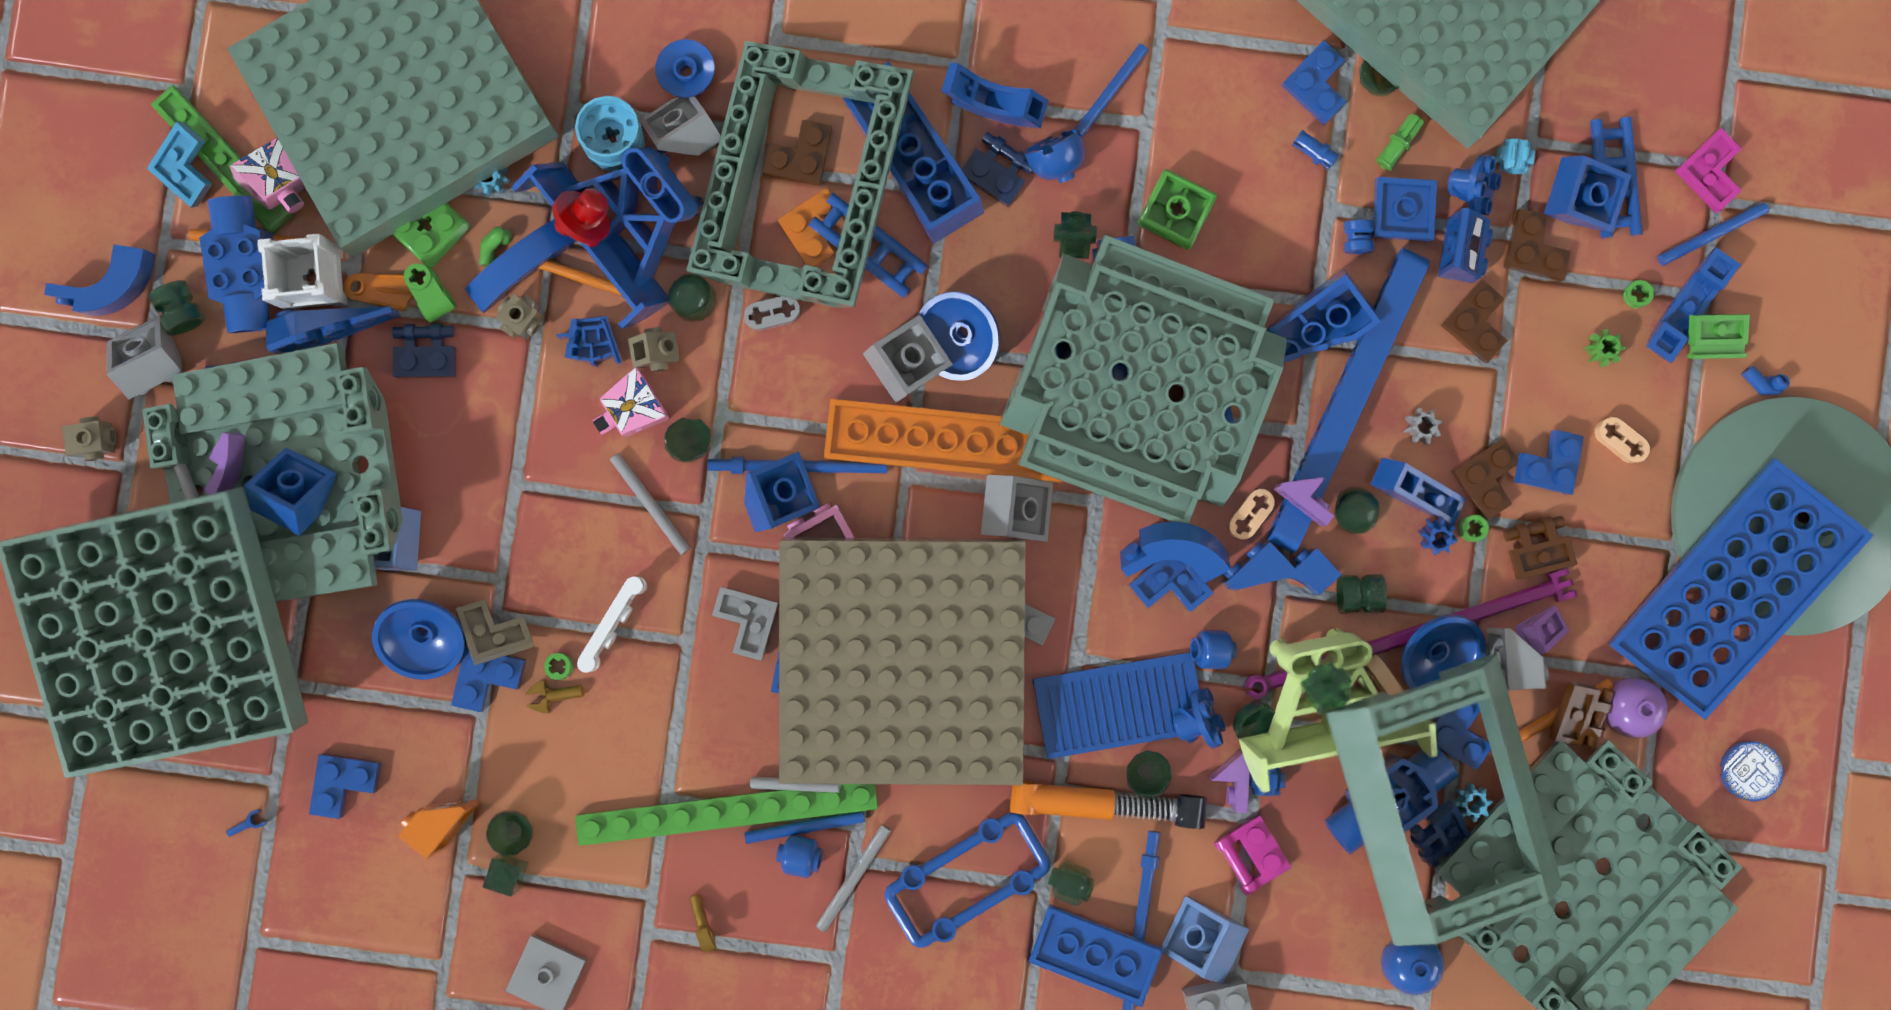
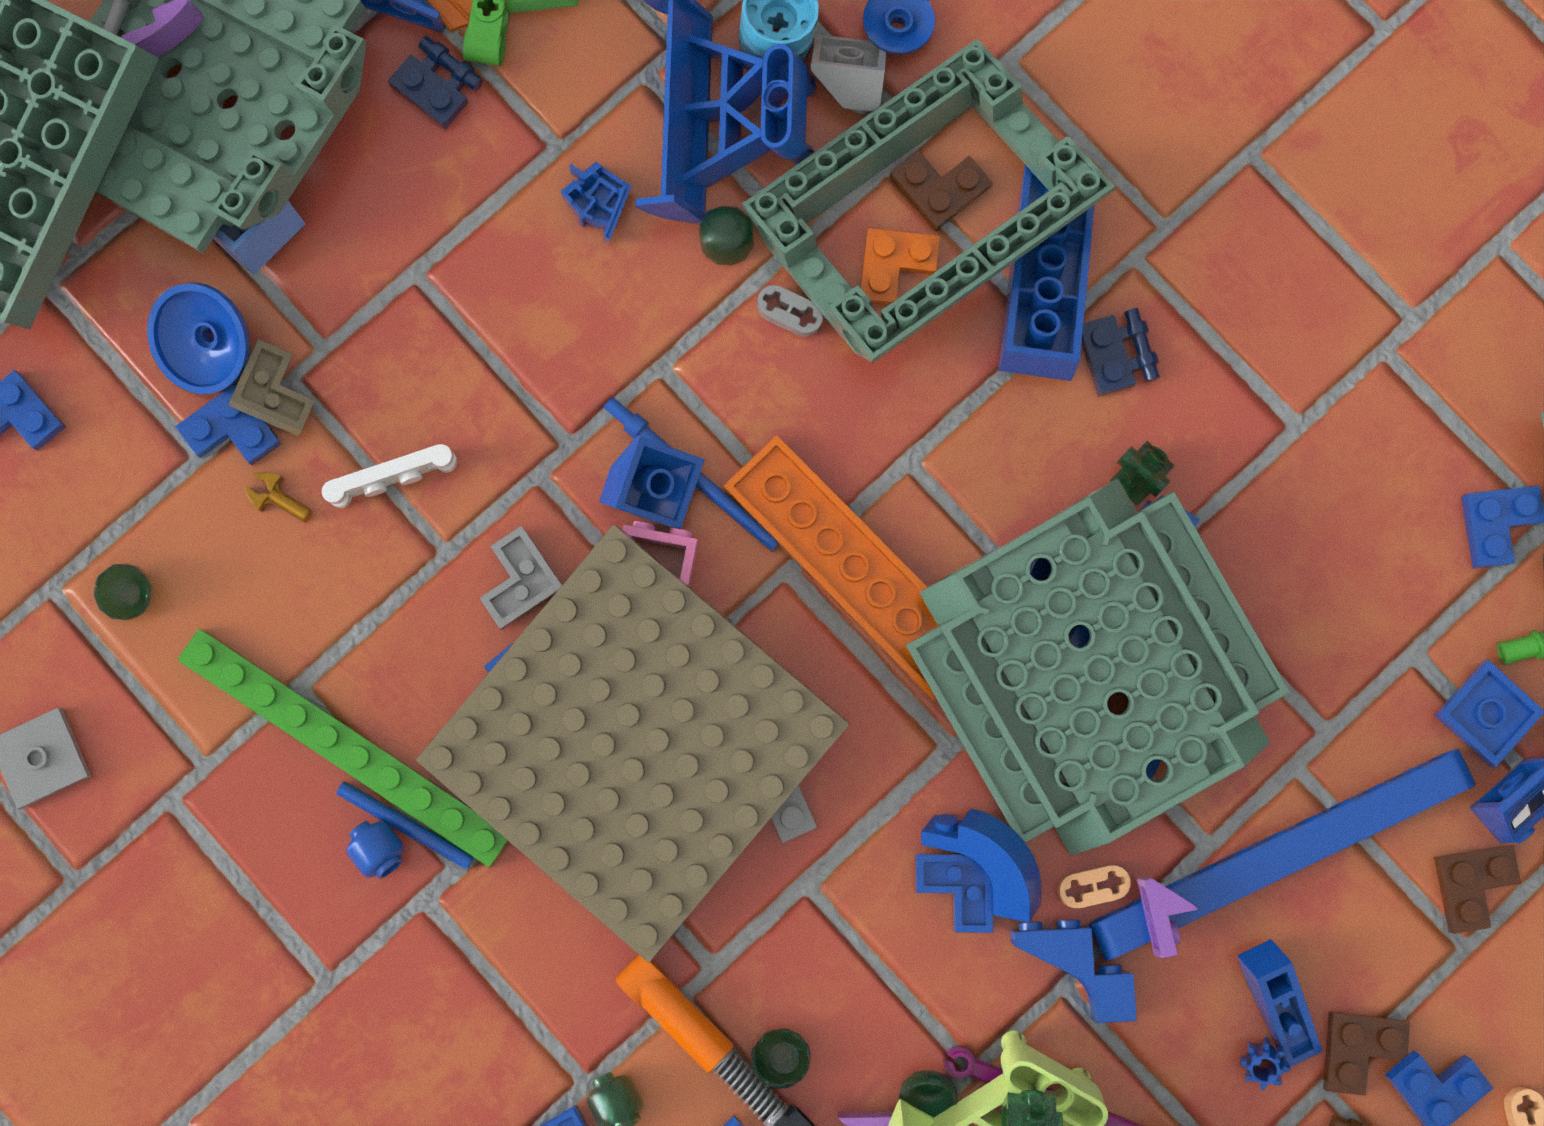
camera: 40 degrees right, 5 degrees down
(290, 490) = (199, 99): blue slope -> none
(435, 826) = (58, 527): orange slope -> none
(491, 242) = (581, 33): bright green arm -> none
(505, 875) = (84, 629): clear green brick -> none
(516, 264) = (593, 71): blue slope -> none
(529, 321) = (550, 120): dark tan brick -> none
(558, 675) = (297, 466): bright green bush -> none
(579, 276) = (634, 123): orange bar -> none
(582, 216) = (687, 71): red plate -> none
(630, 406) = (582, 287): torso -> none
(650, 504) = (522, 395): light grey bar -> none
(654, 349) = (649, 252): dark tan brick -> none
(687, 440) = (608, 362): clear green hair -> none
(703, 933) = (220, 847): pearl gold bar -> none
(773, 784) = (409, 755): light grey bar -> none
(853, 878) = (409, 915): light grey bar -> none
(886, 245) = (922, 342): blue bar -> none
(907, 358) = (882, 457): light grey slope -> none
(945, 927) = (456, 1040): blue bar -> none
(971, 353) = (930, 469): blue dish -> none
(994, 101) = (1167, 284): blue arch -> none
(1017, 508) = (869, 688): light grey slope -> none
(1057, 156) = (1186, 385): blue cylinder -> none
(1111, 89) = (1284, 367): blue bar -> none
(1114, 704) = (809, 966): blue window -> none
(1195, 204) = (1269, 507): bright green brick -> none
(1200, 720) = (876, 1048): blue plate -> none
(1213, 649) = (946, 988): blue head -> none
(1316, 150) = (1446, 584): blue pin -> none
(1326, 317) = (1325, 755): blue wedge -> none
(1356, 510) = (1202, 970): clear green hair -> none
(1358, 237) = (1422, 703): blue wheel -> none
(1366, 593) = (1146, 1061): clear green wheel -> none
(1431, 422) = (1349, 942): light grey gear -> none
(1482, 530) = (1299, 1076): bright green bush -> none

